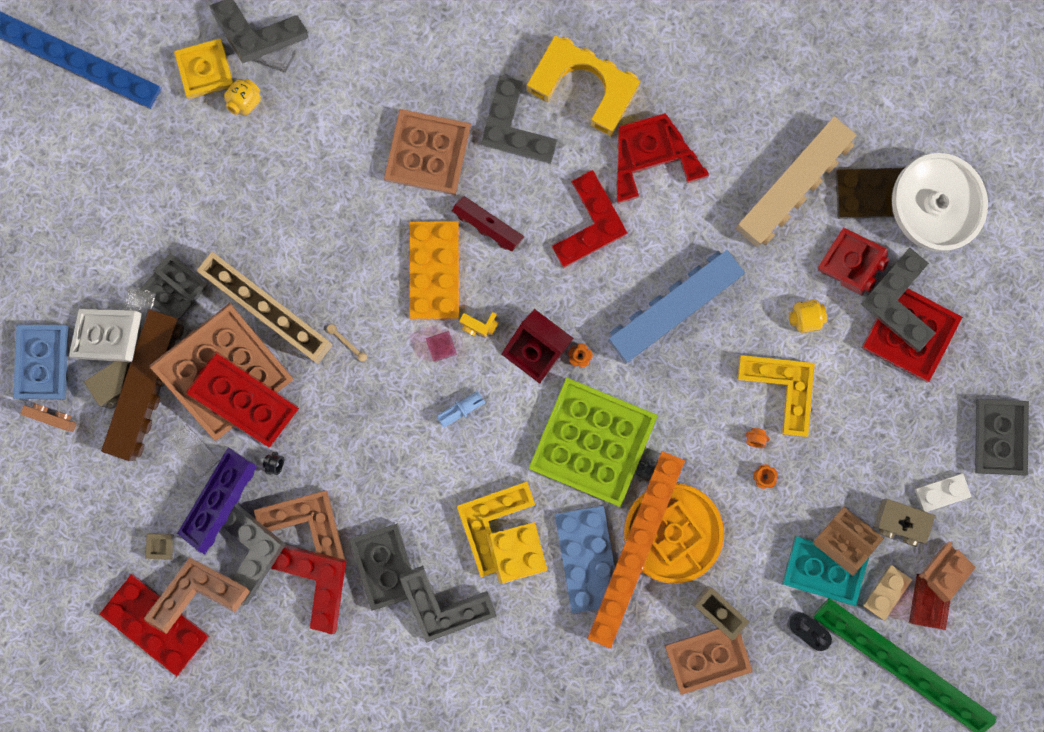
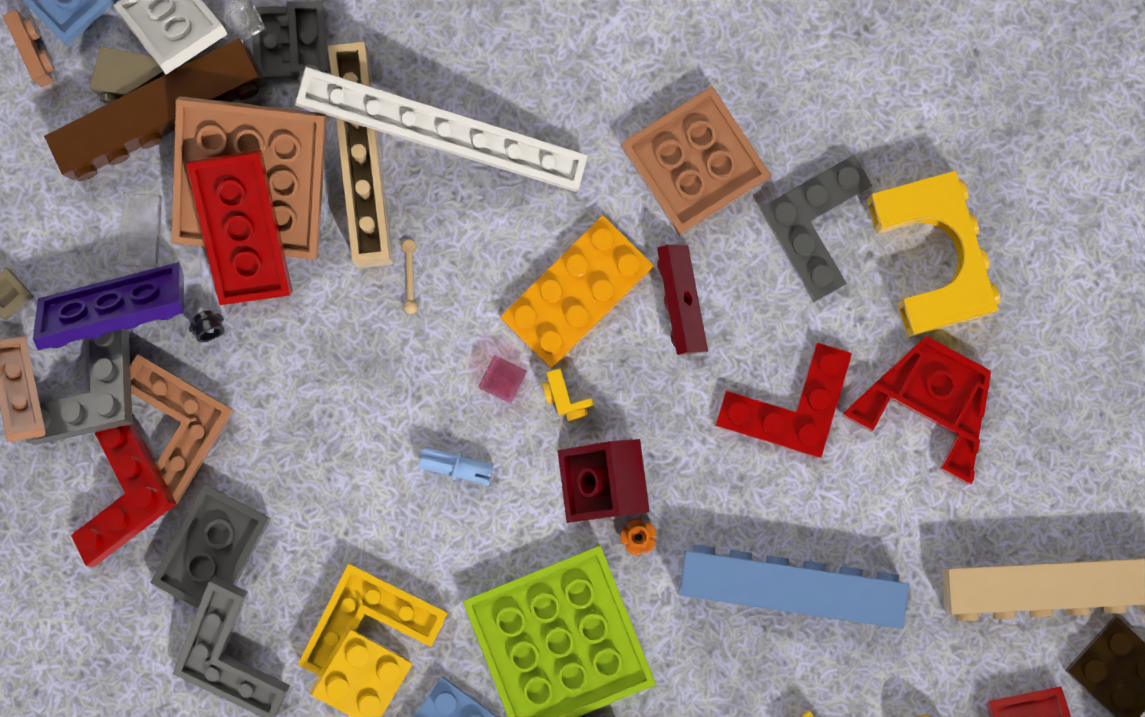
camera: 45 degrees right, 0 degrees up
(291, 256) = (440, 129): none -> white plate

